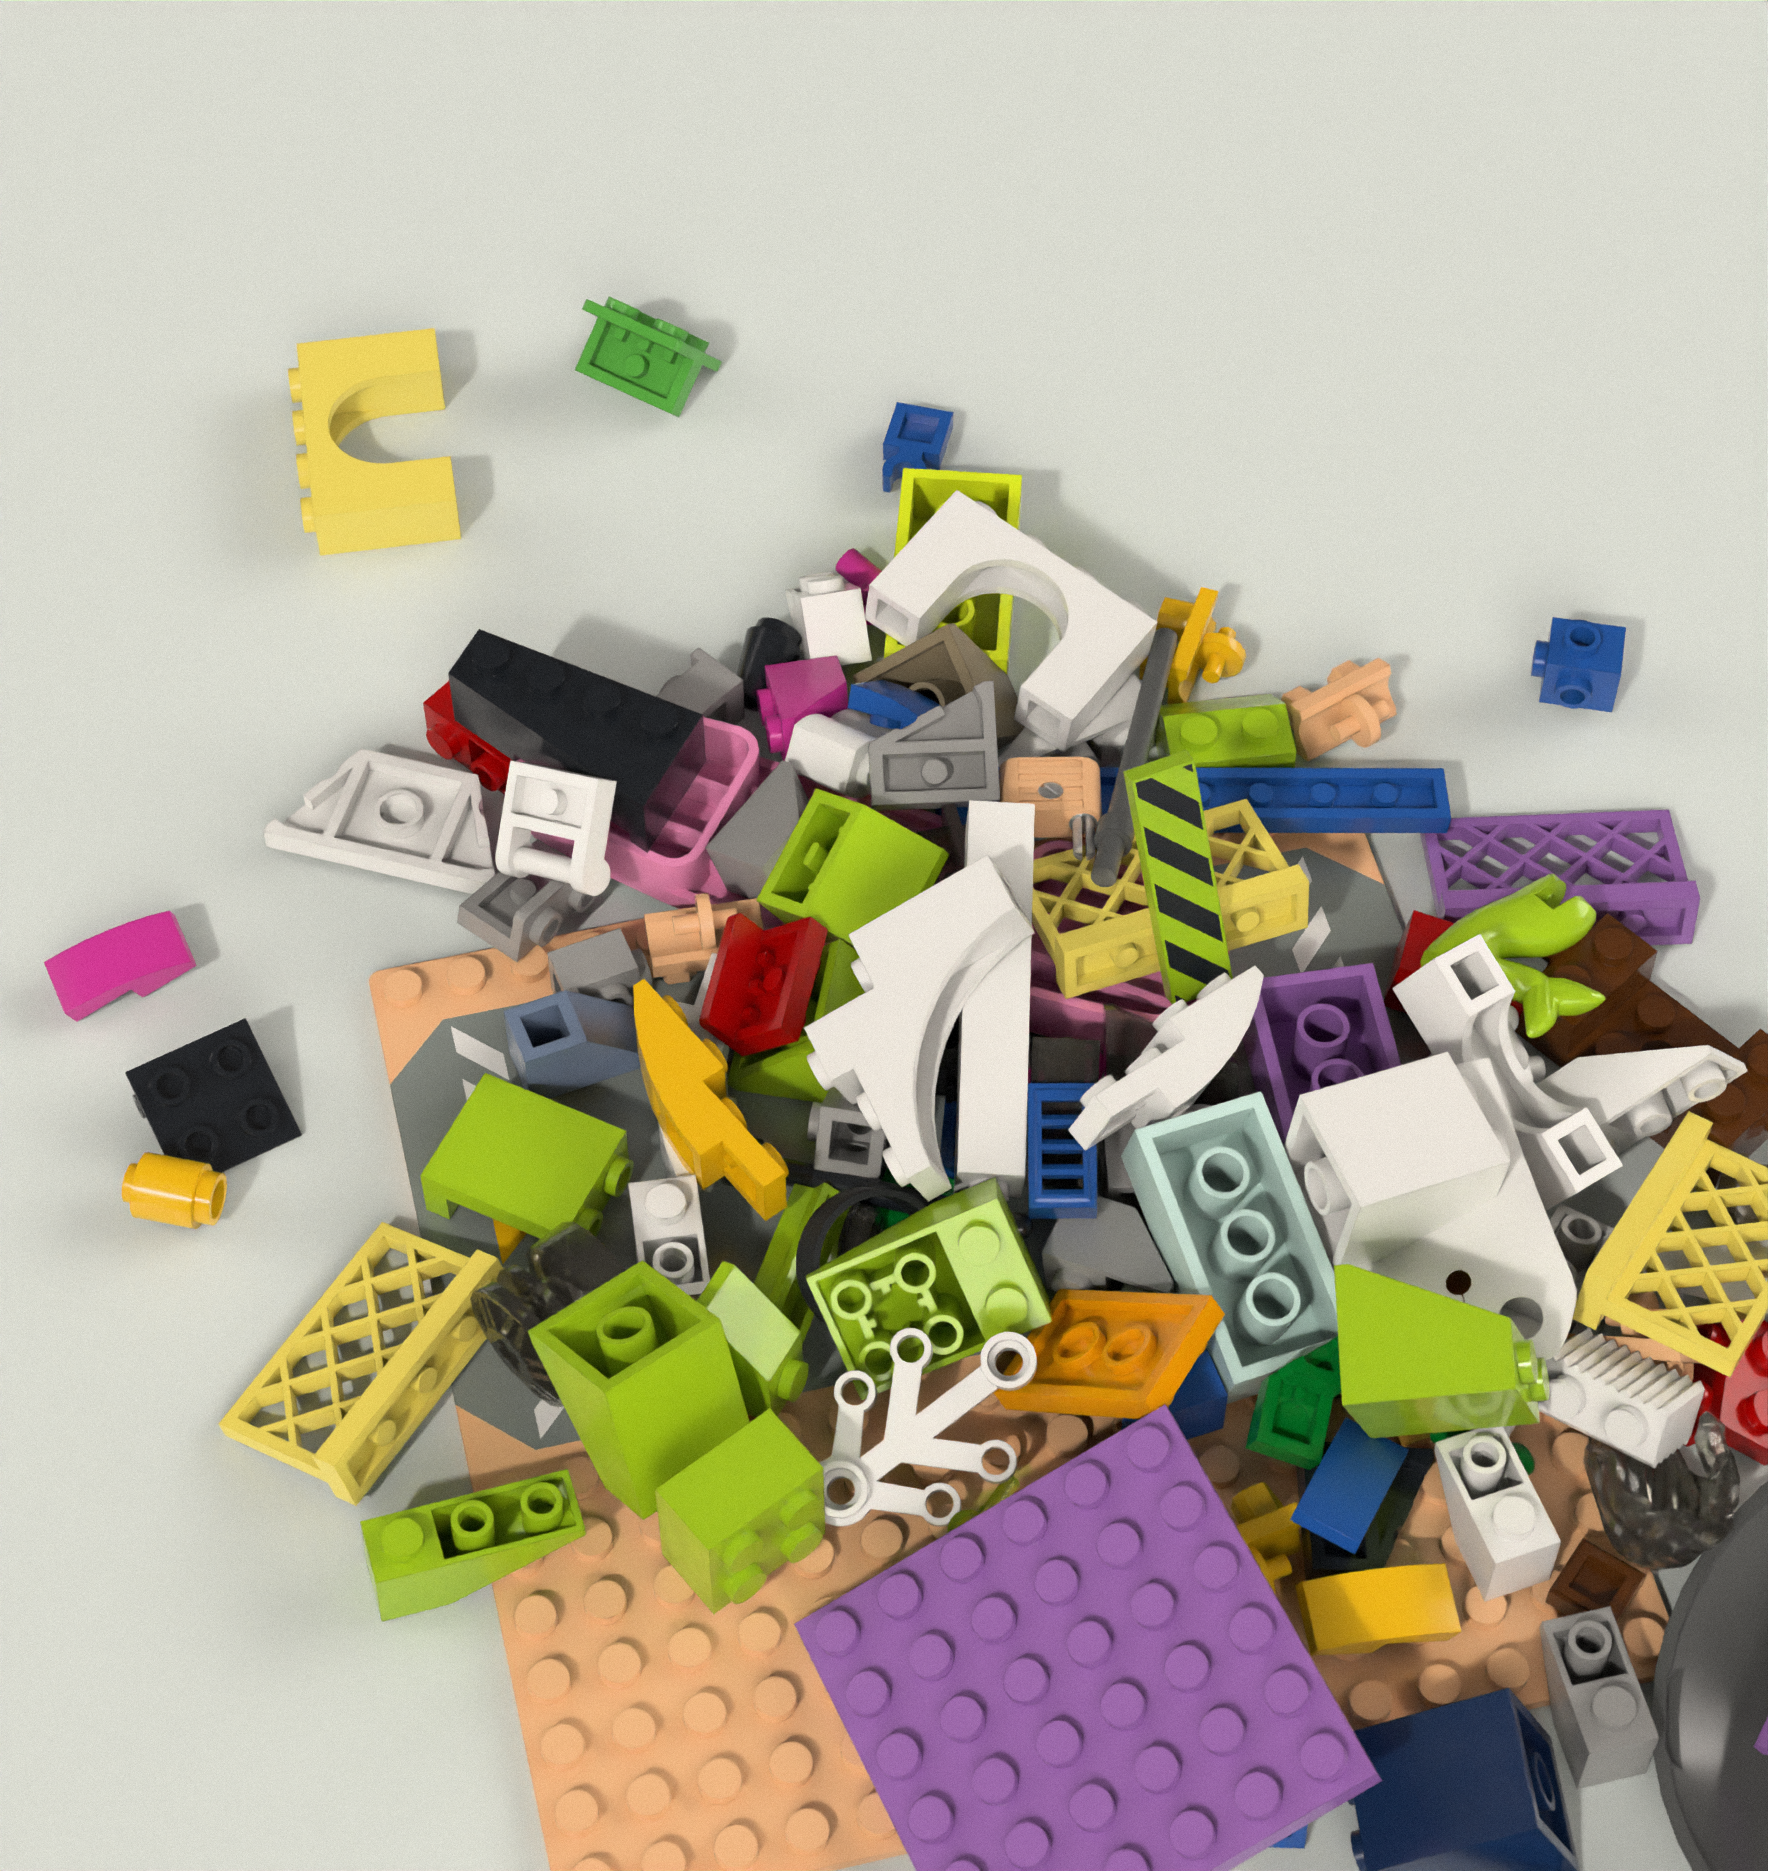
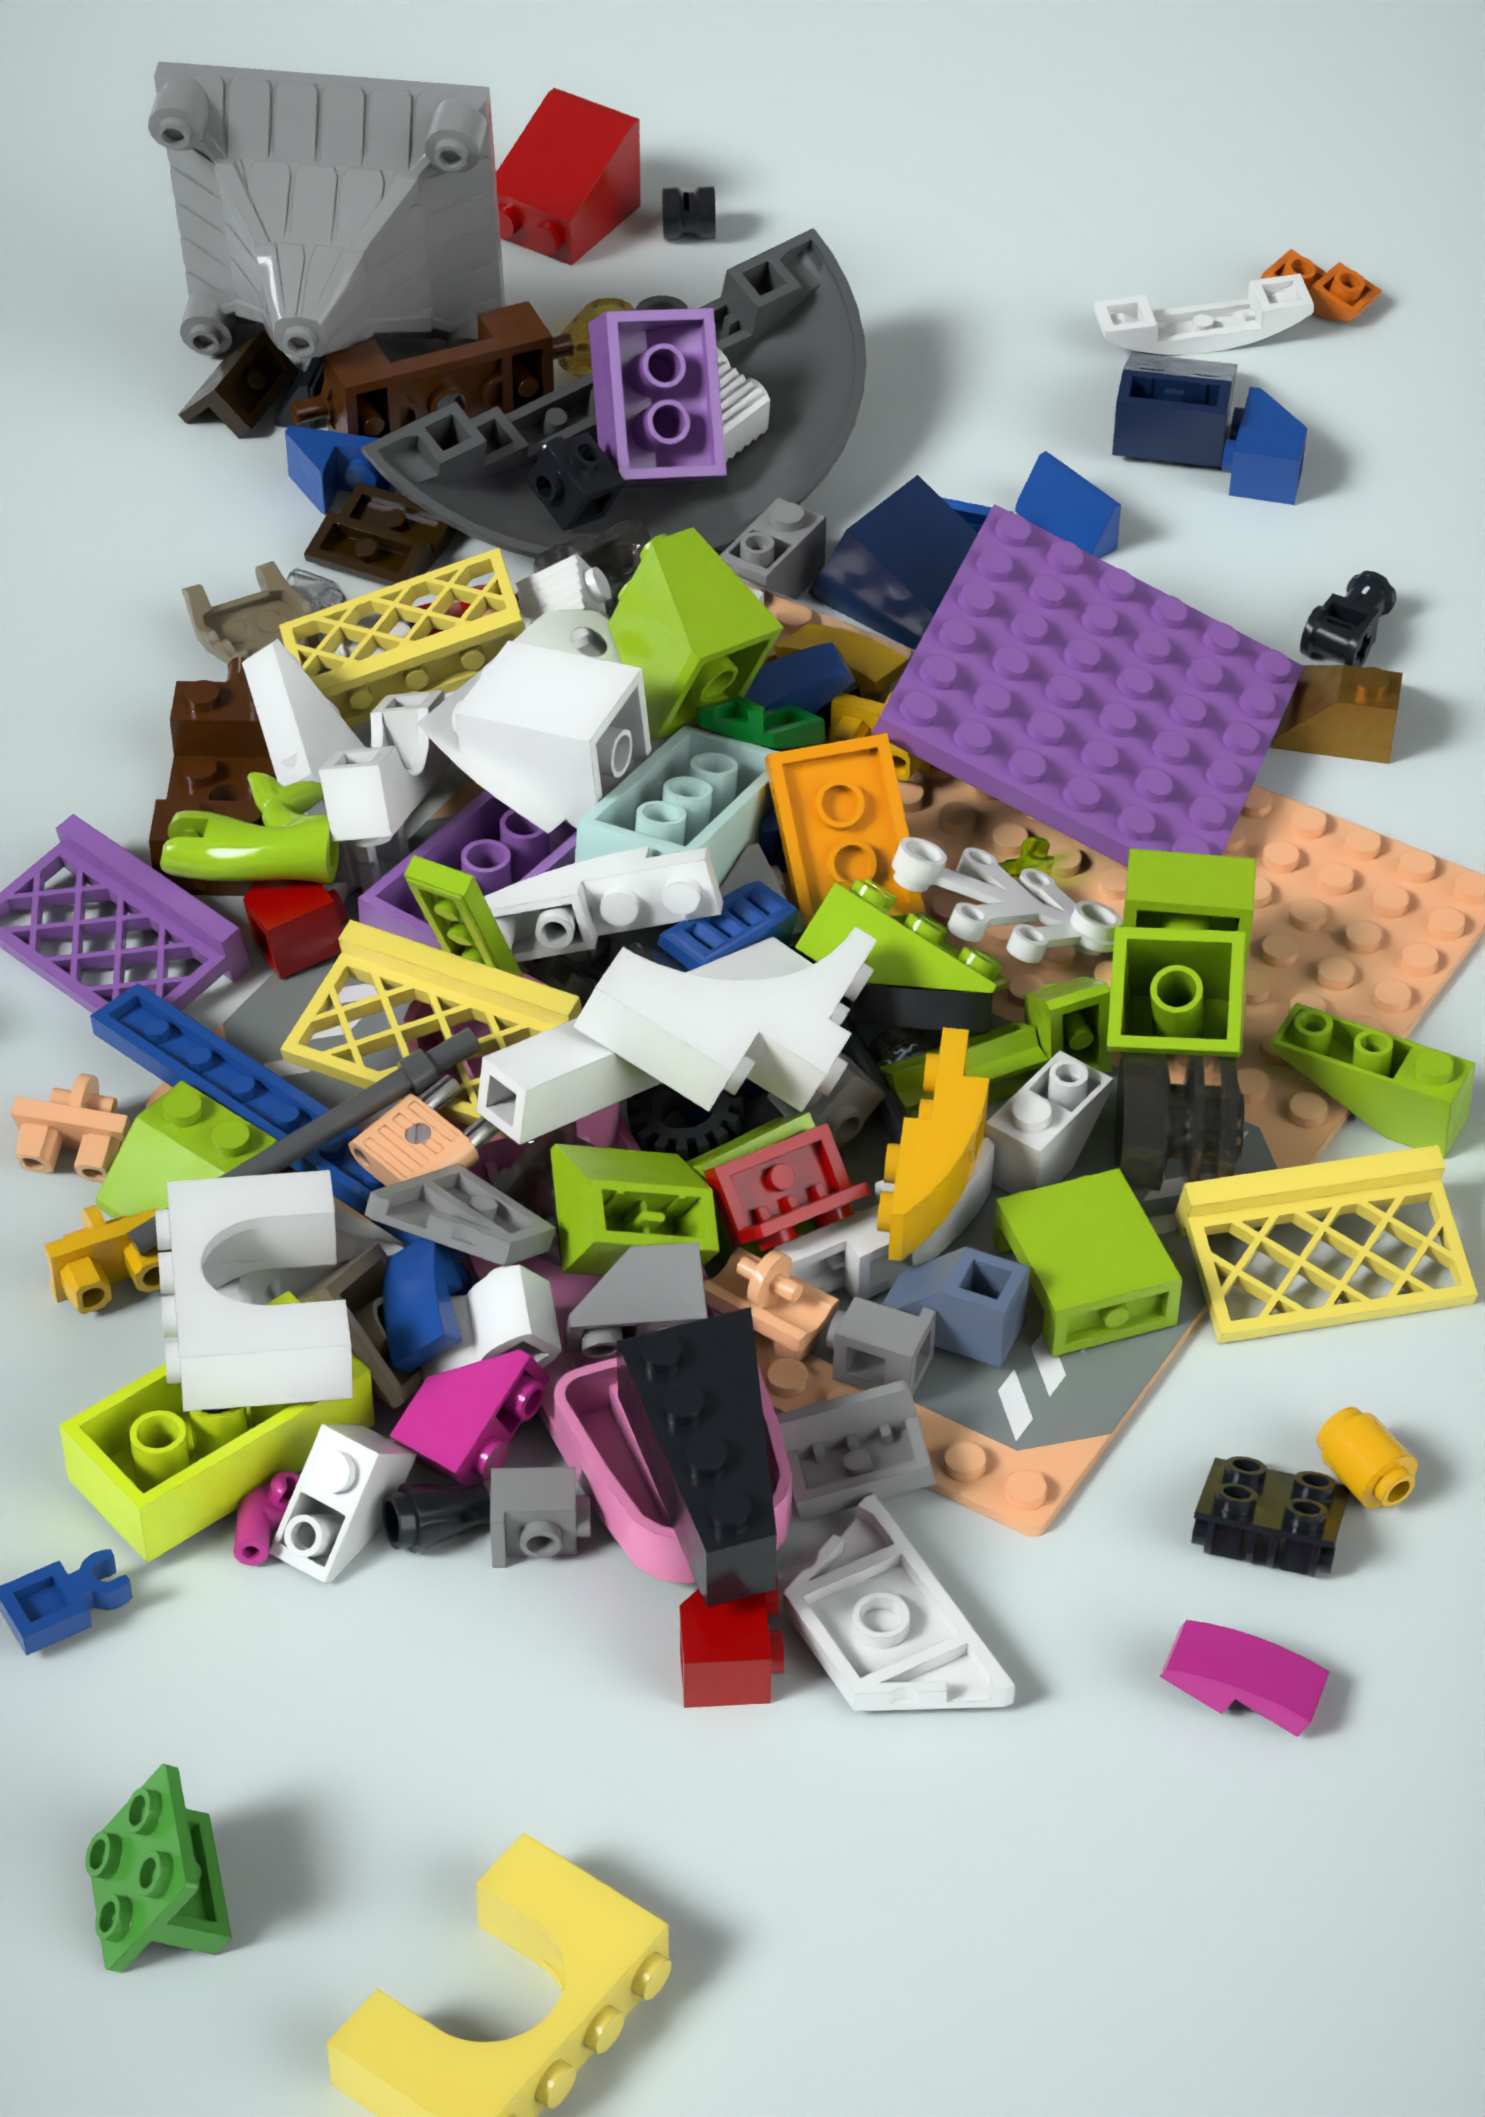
camera: 135 degrees left, 10 degrees down
(560, 806) = (808, 1400): white plate -> none

